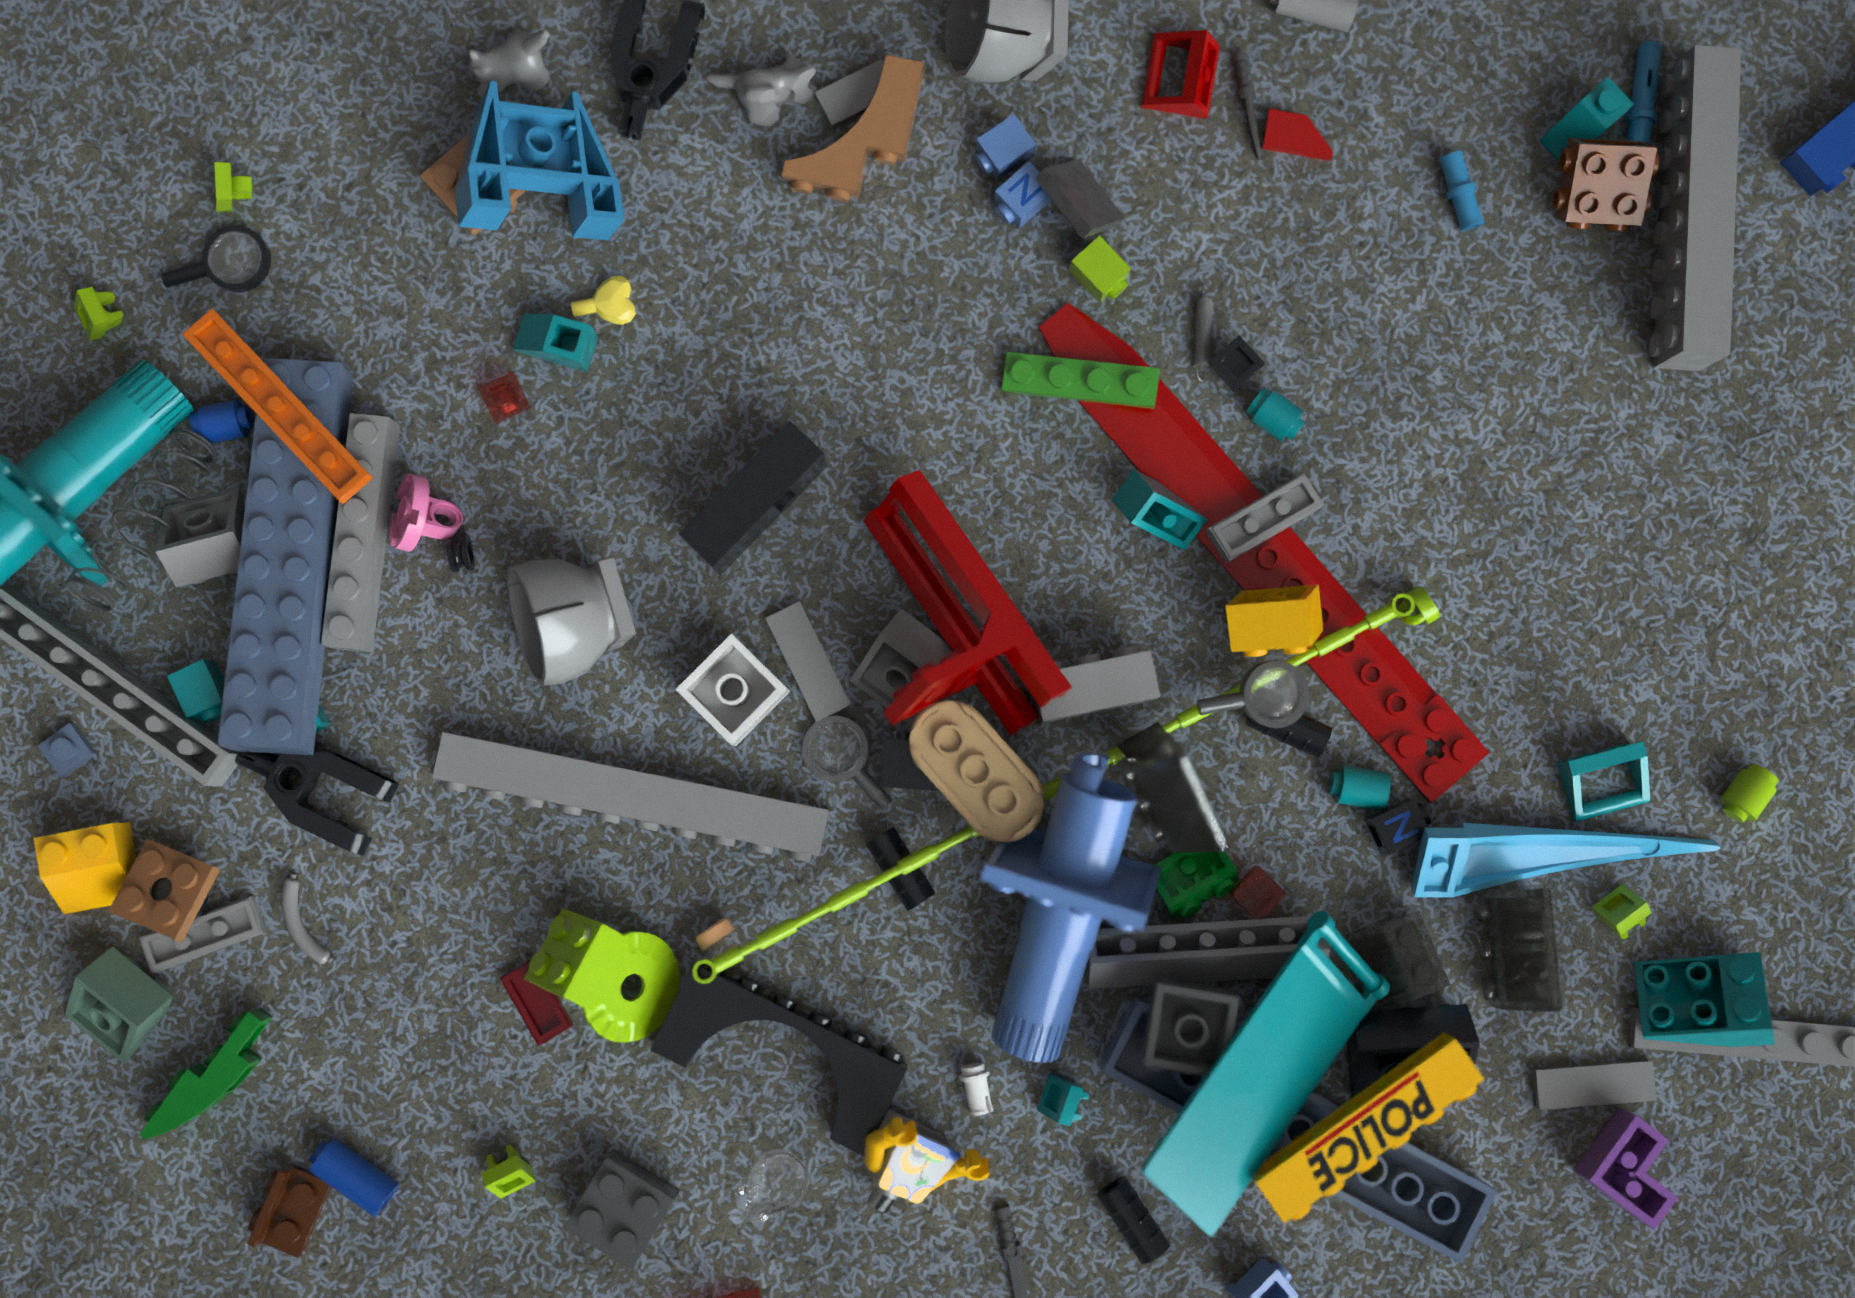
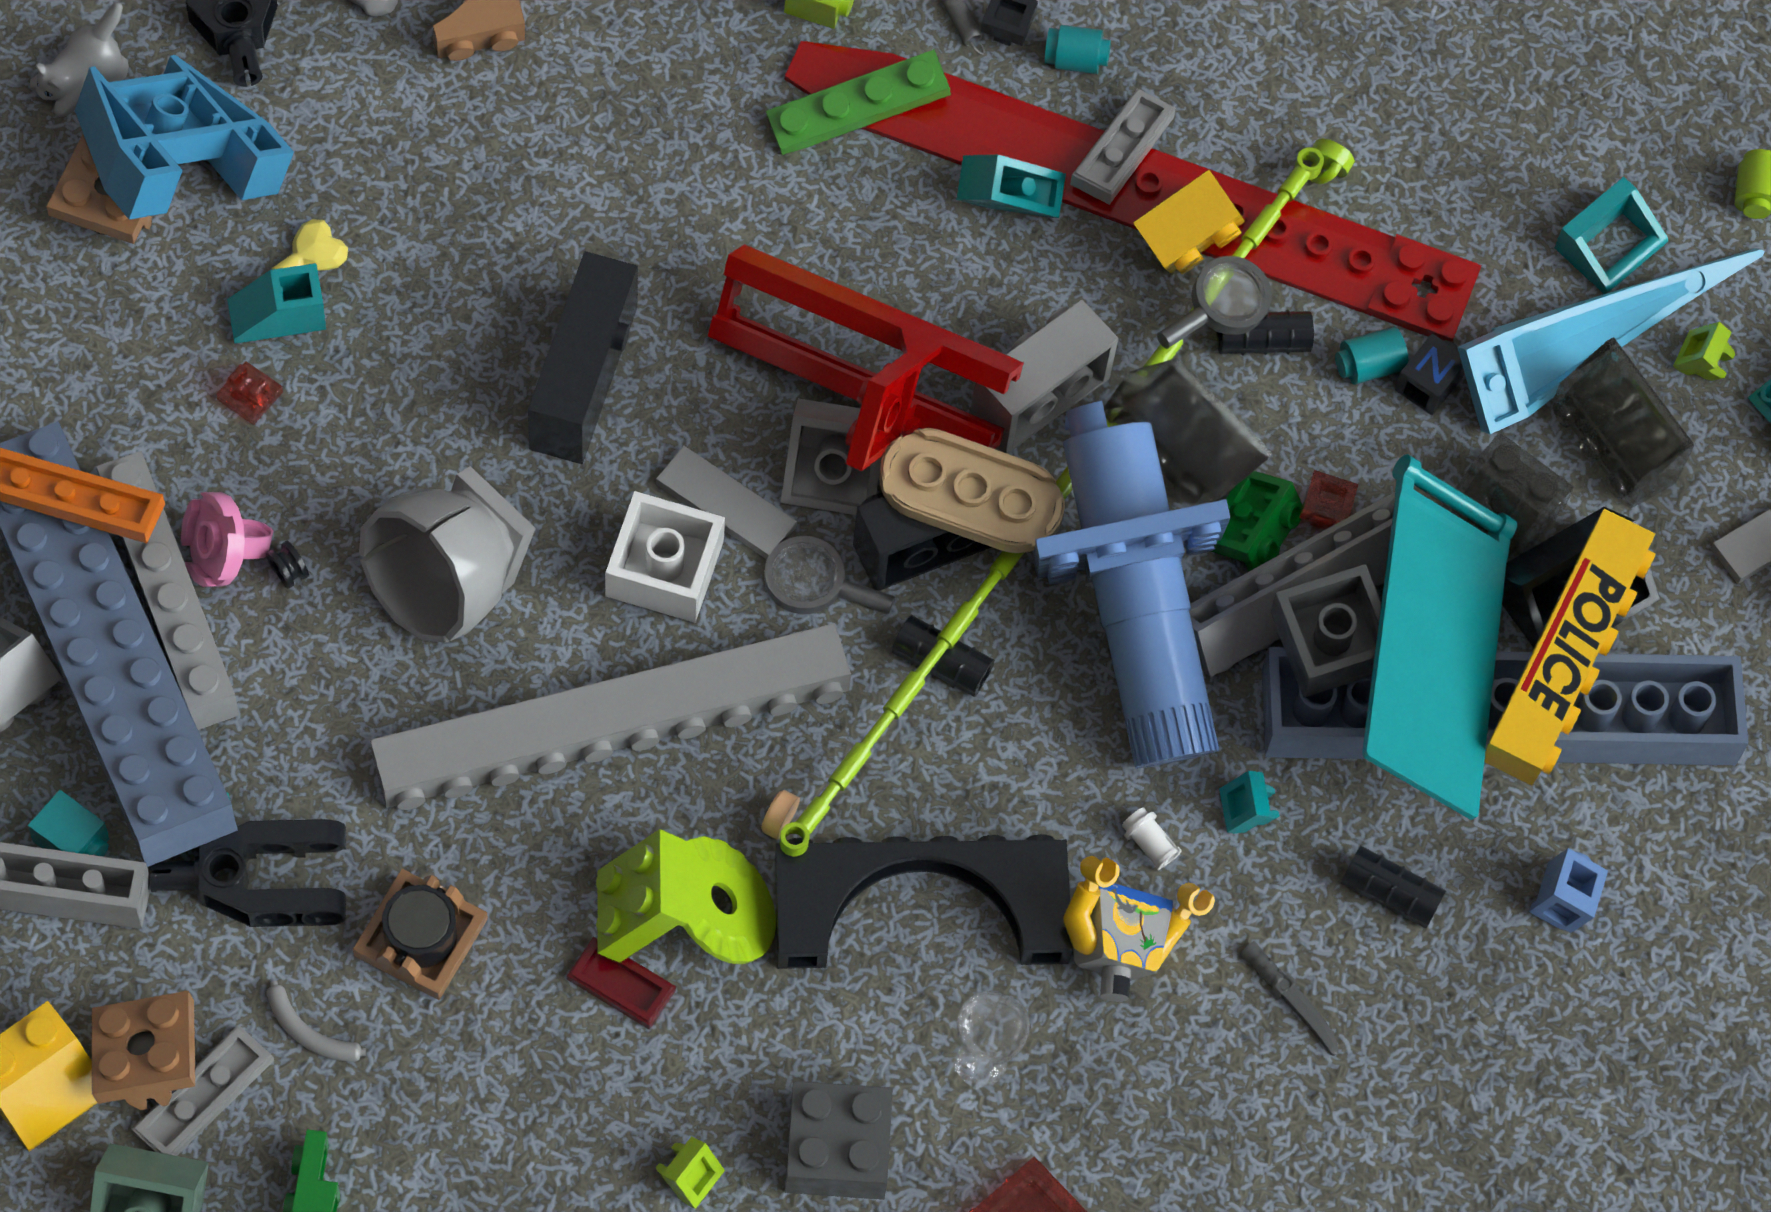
camera: 30 degrees left, 20 degrees down
(410, 894) = (421, 933): none -> piece

